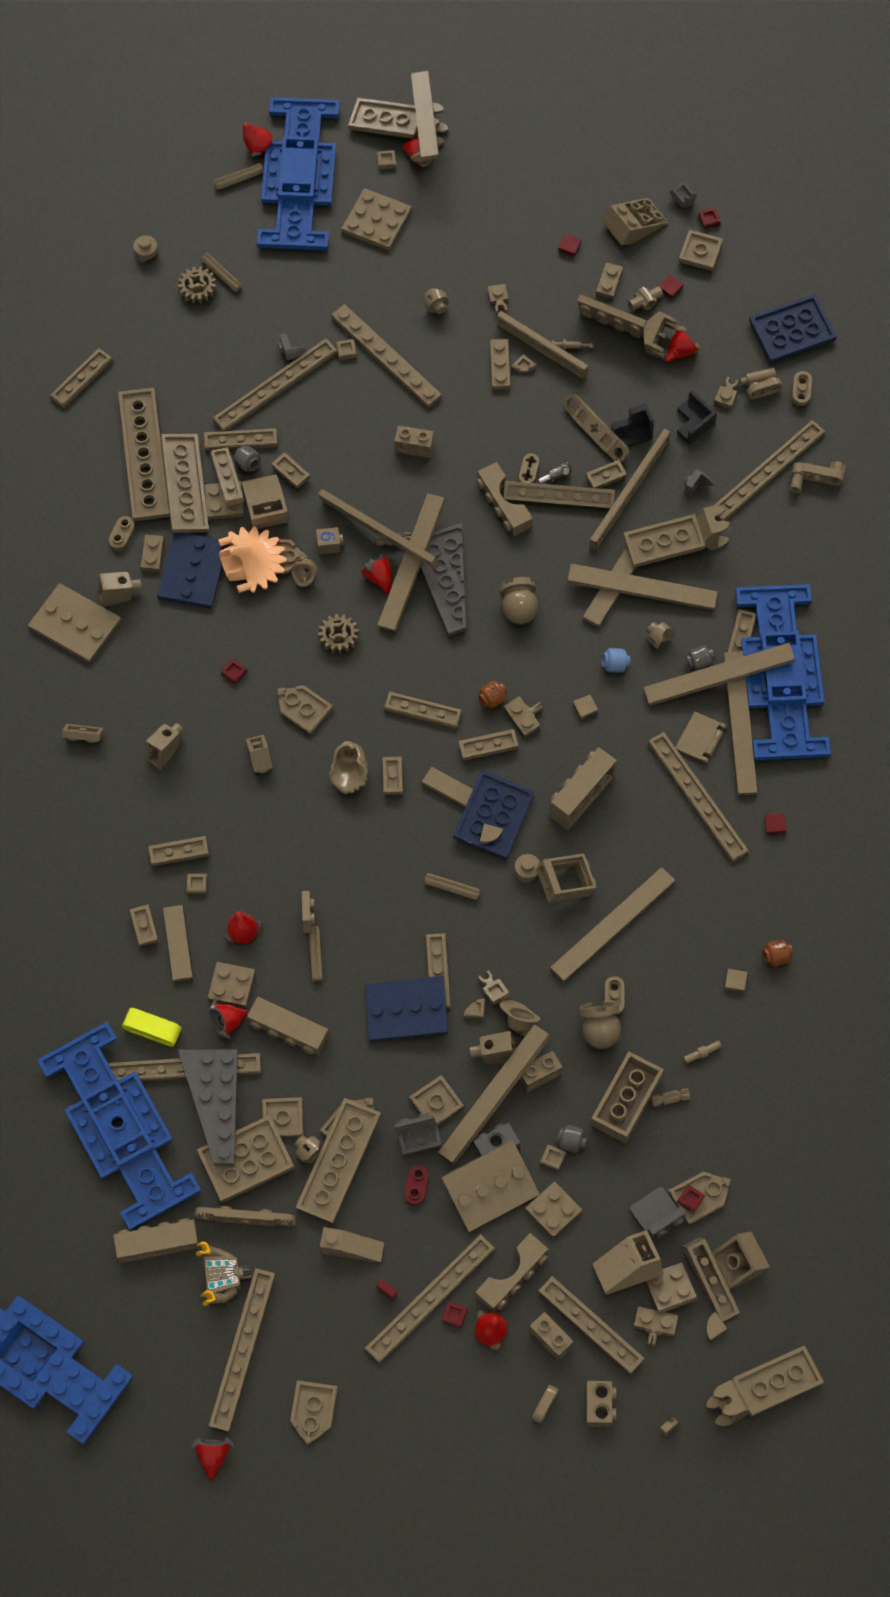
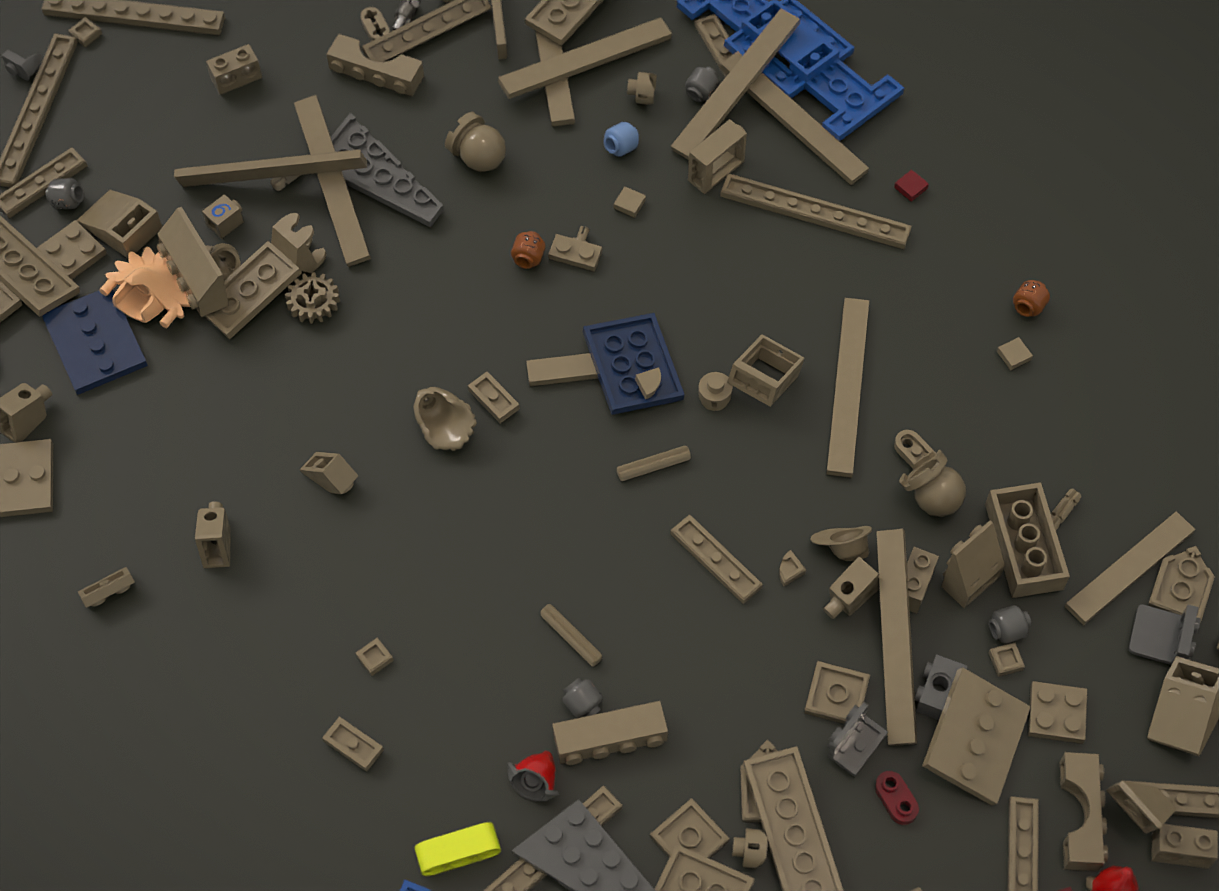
camera: 40 degrees left, 5 degrees down
(152, 553) = (33, 352): dark tan plate -> none
(177, 943) = (407, 736): dark tan tile -> none
(178, 851) = (324, 636): dark tan plate -> none
(227, 476) = (57, 223): dark tan tile -> none
(231, 984) = (506, 736): dark tan plate -> none
(234, 671) = (227, 410): dark red tile -> none
(242, 928) = (467, 665): red hat -> none
(279, 563) = (192, 264): none -> dark tan slope
(289, 995) = (582, 698): none -> dark grey head
(290, 470) = (122, 176): dark tan plate -> none
(303, 707) = (336, 395): dark tan tile -> none
(307, 917) = (525, 595): dark tan plate -> none
(318, 599) = (267, 274): none -> dark tan hinge
(379, 572) = (308, 209): red hat -> none
(406, 1009) = (720, 620): dark blue plate -> none
(423, 710) = (466, 314): dark tan tile -> none
(488, 744) = (566, 300): dark tan plate -> none
(494, 990) = (792, 534): dark tan plate -> none
(544, 1294) = (1143, 804): none -> dark tan slope
(577, 1087) = (973, 565): none -> dark tan slope
(582, 788) = (702, 274): dark tan brick -> none
(662, 716) = (717, 156): none -> dark tan window
(679, 1161) = (1129, 568): none -> dark tan tile
(691, 1198) = (1180, 593): dark red tile -> none
(700, 737) = (768, 156): dark tan piece -> none
(702, 1052) = (1050, 444): dark tan bar -> none

